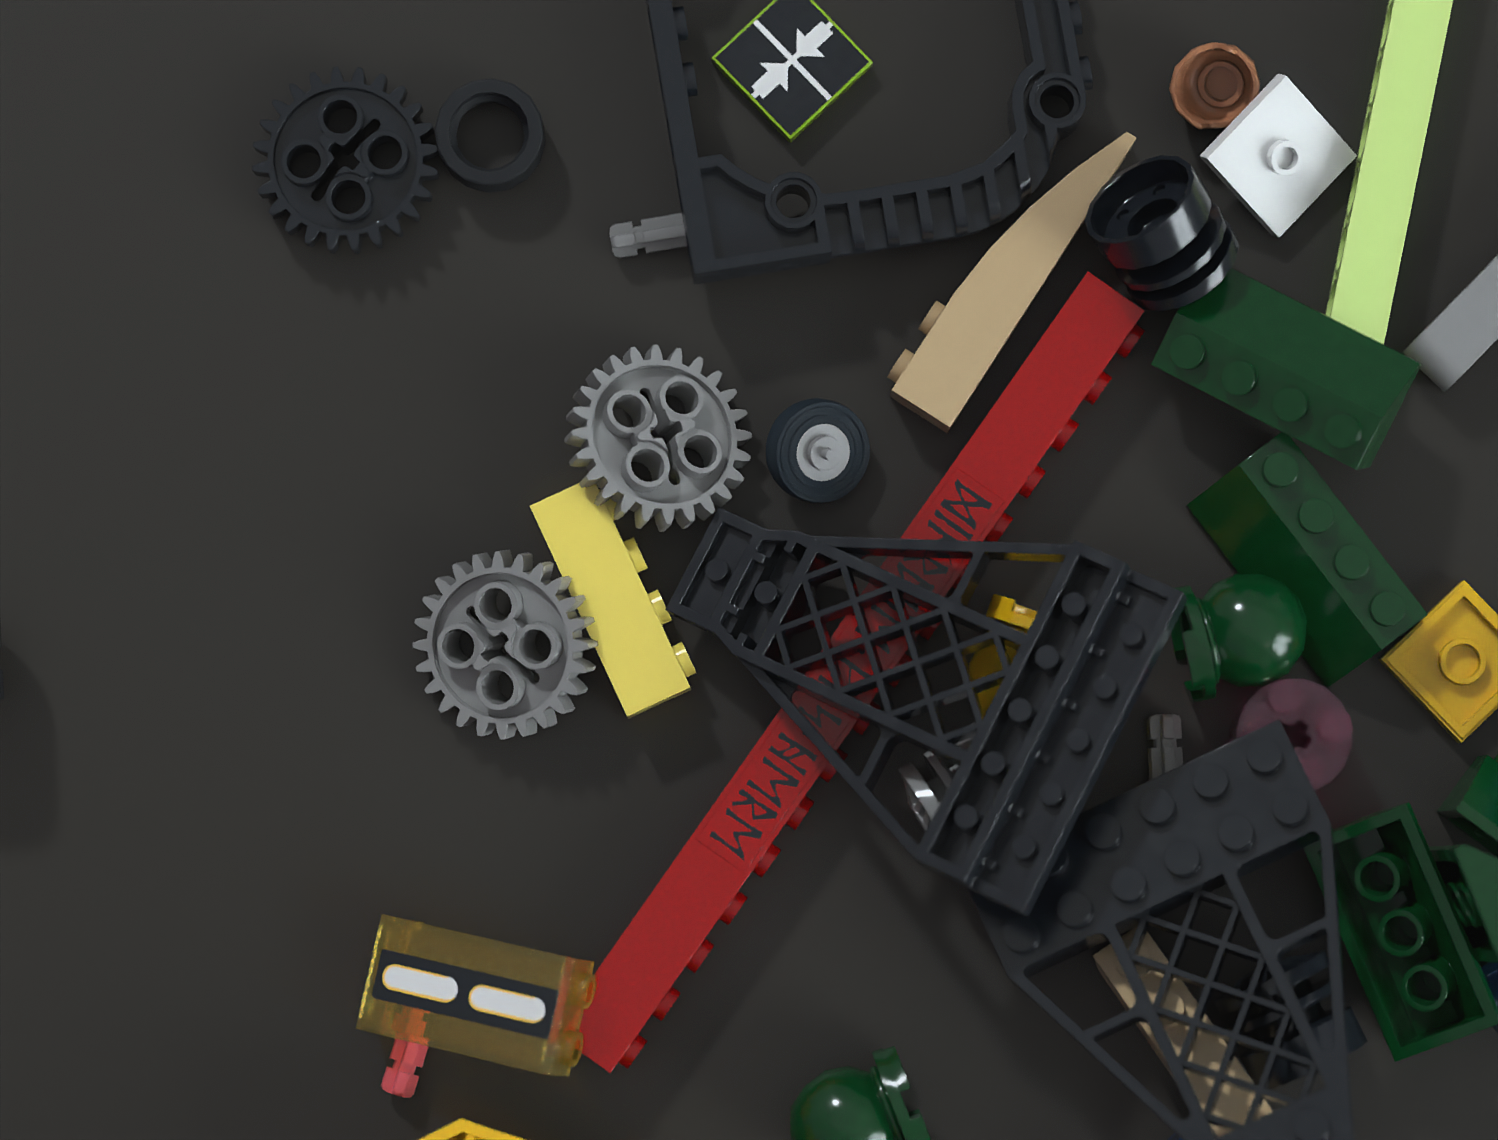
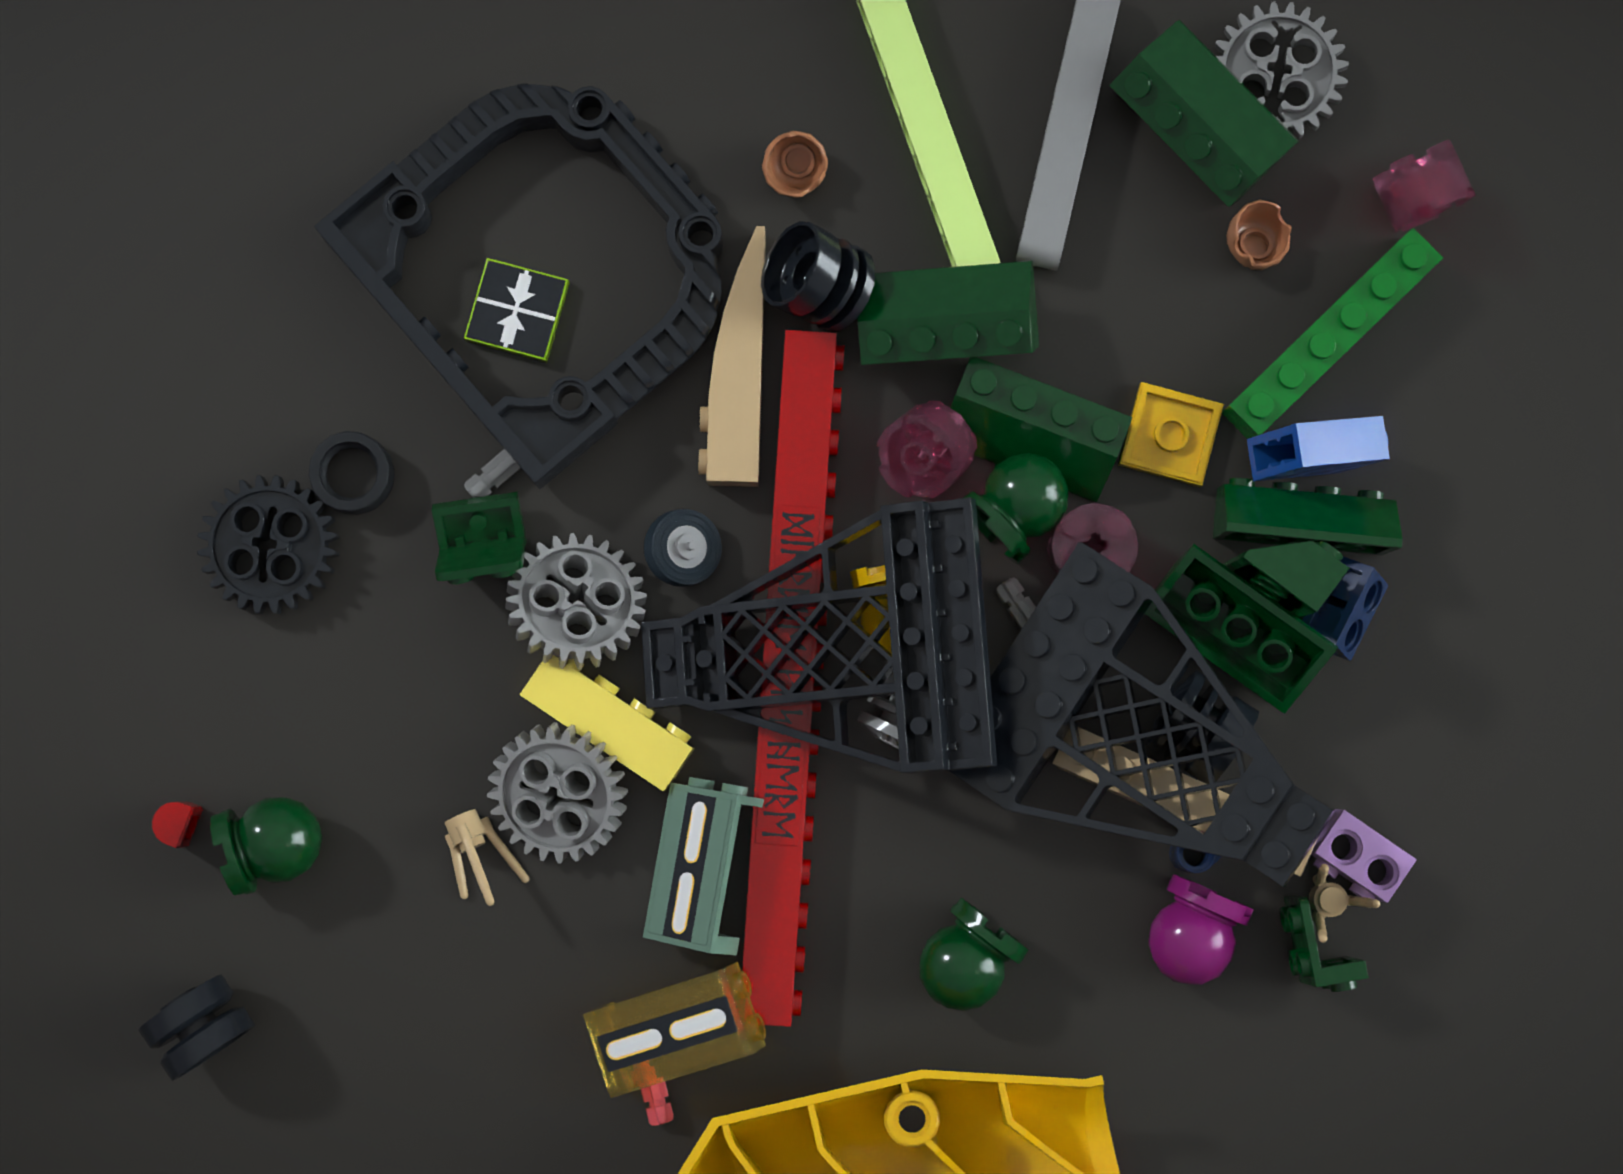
camera: 30 degrees left, 0 degrees up
(51, 415) = (176, 823): none -> red brick
(146, 501) = (270, 842): none -> dark green tile
(373, 628) = (466, 834): none -> tan plant
(592, 298) = (479, 537): none -> dark green bracket
(612, 823) = (695, 866): none -> sand green panel
(1166, 508) = (926, 450): none -> clear pink brick
(1278, 155) = (861, 184): white plate -> none

